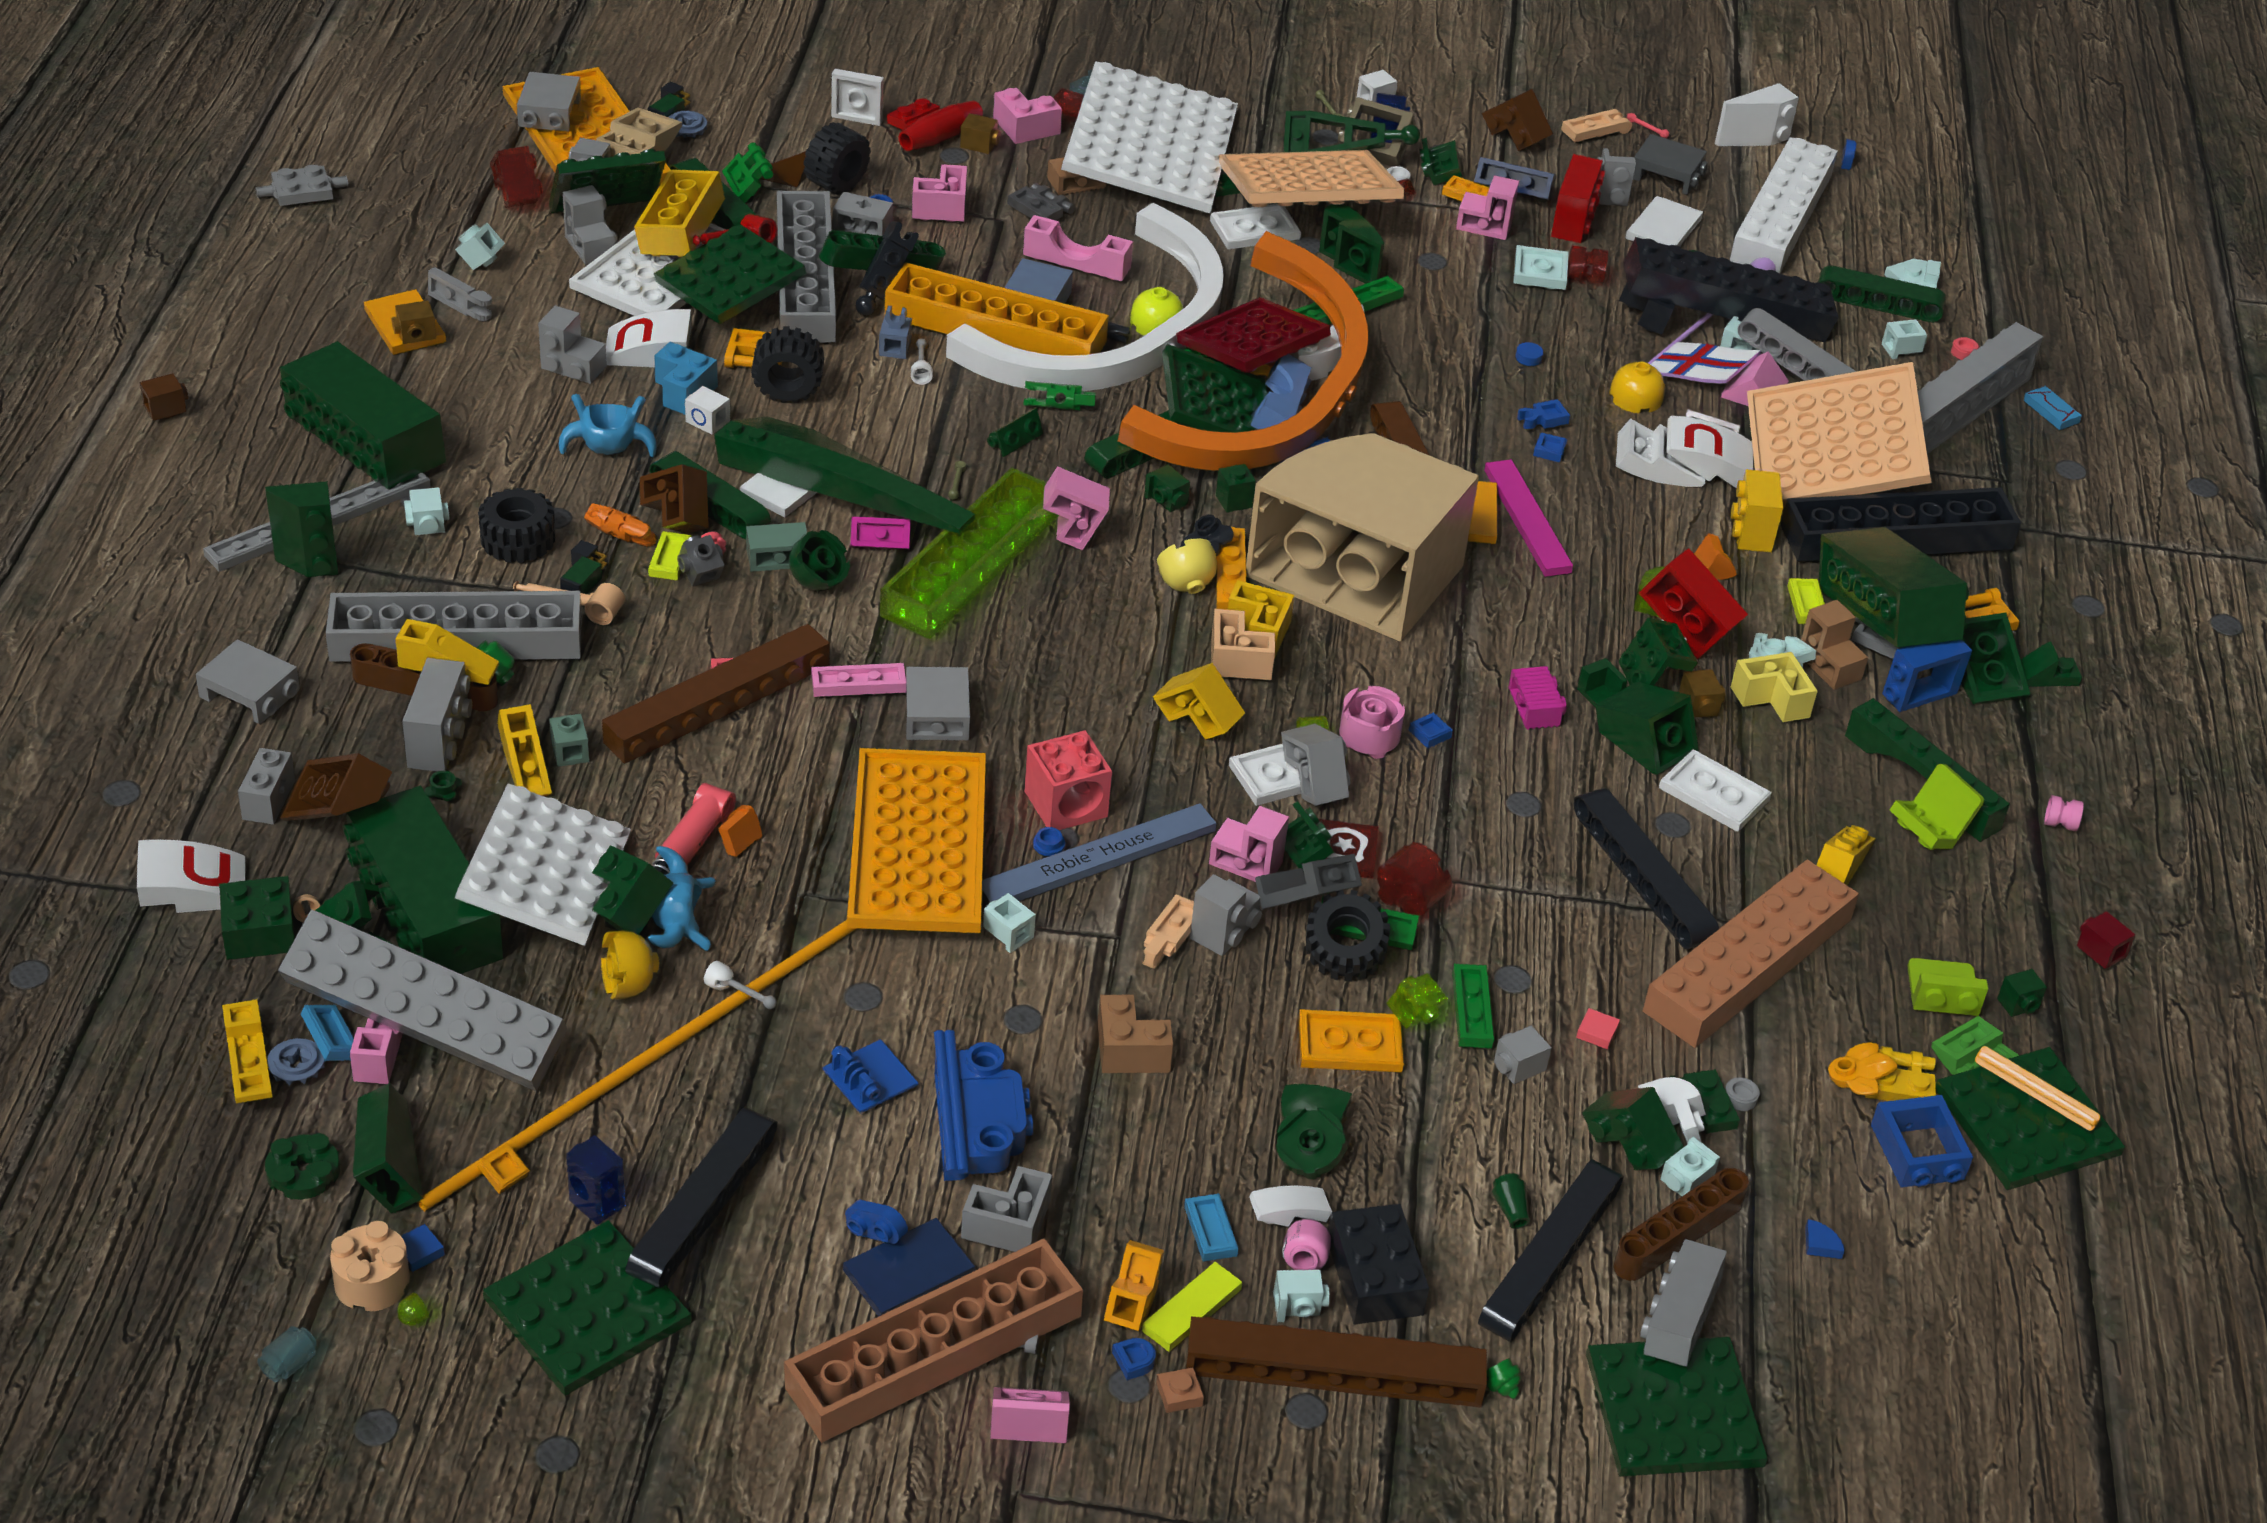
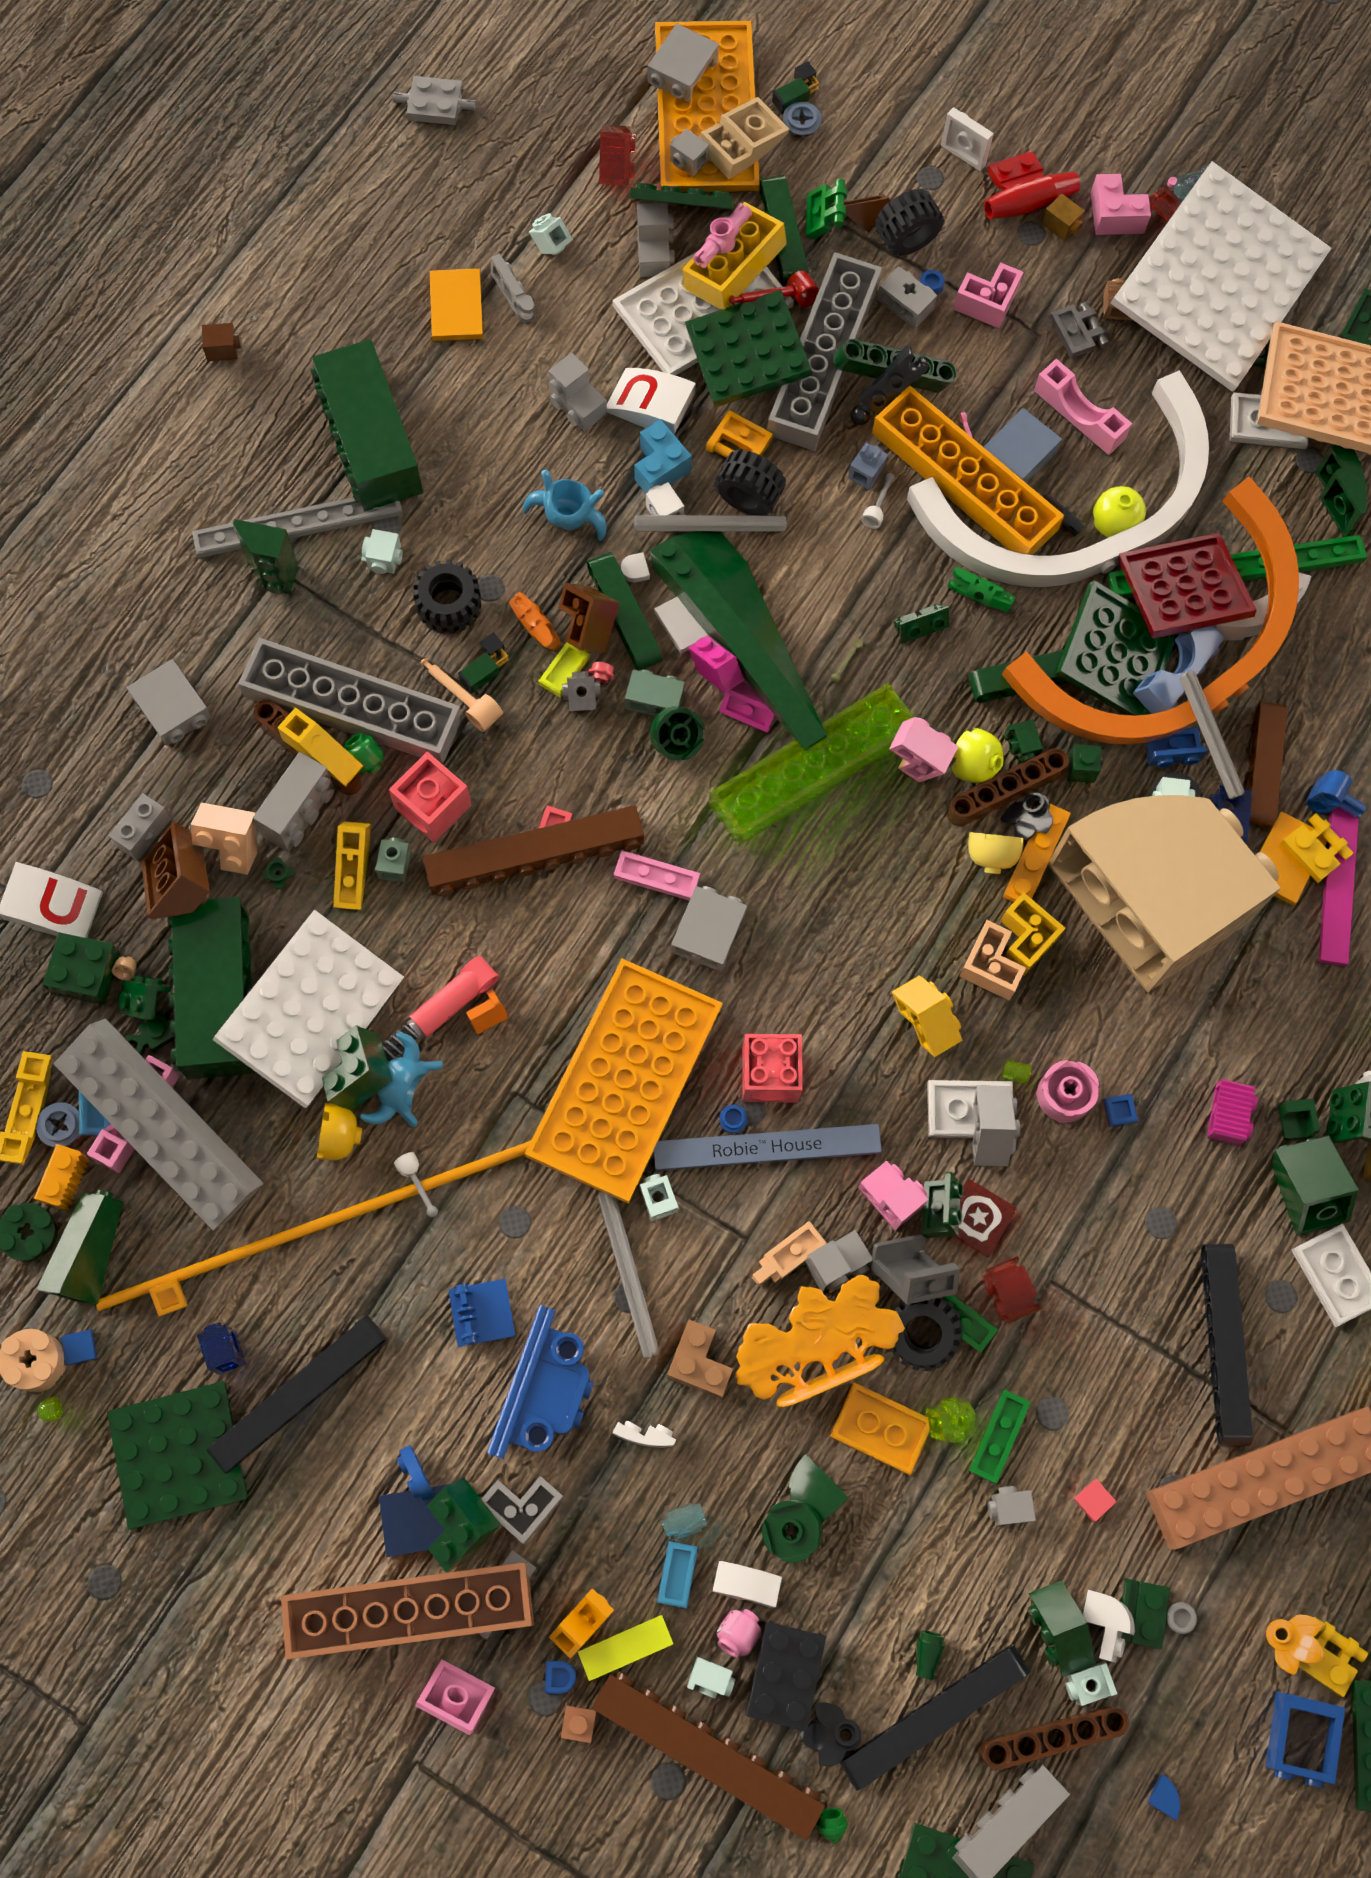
camera: 25 degrees right, 30 degrees up
(325, 1097) = (62, 1178): none -> light orange brick
(382, 744) = (228, 831): none -> light nougat brick
(414, 322) = (456, 318): pearl gold brick -> none
(586, 669) = (430, 797): none -> coral brick
(664, 188) = (722, 235): none -> bright pink pin
(707, 461) = (635, 568): none -> white tile
(761, 408) = (709, 523): none -> light grey axle
(830, 500) = (716, 664): none -> dark pink brick
(963, 1229) = (465, 1521): none -> dark green brick
(1012, 996) = (629, 1275): none -> light grey axle
(1120, 1117) = (654, 1437): none -> white slope
(1133, 502) = (977, 756): none -> neon yellow cylinder
(1171, 524) = (1016, 778): none -> reddish brown beam
(1192, 1173) = (684, 1521): none -> clear light blue brick
(1244, 959) = (820, 1334): none -> light orange plant
(1326, 407) = (1211, 734): none -> light grey axle
(1455, 1302) = (825, 1734): none -> black plate
(1478, 446) = (1331, 792): none -> blue beam
(1494, 497) = (1312, 853): none -> yellow plate

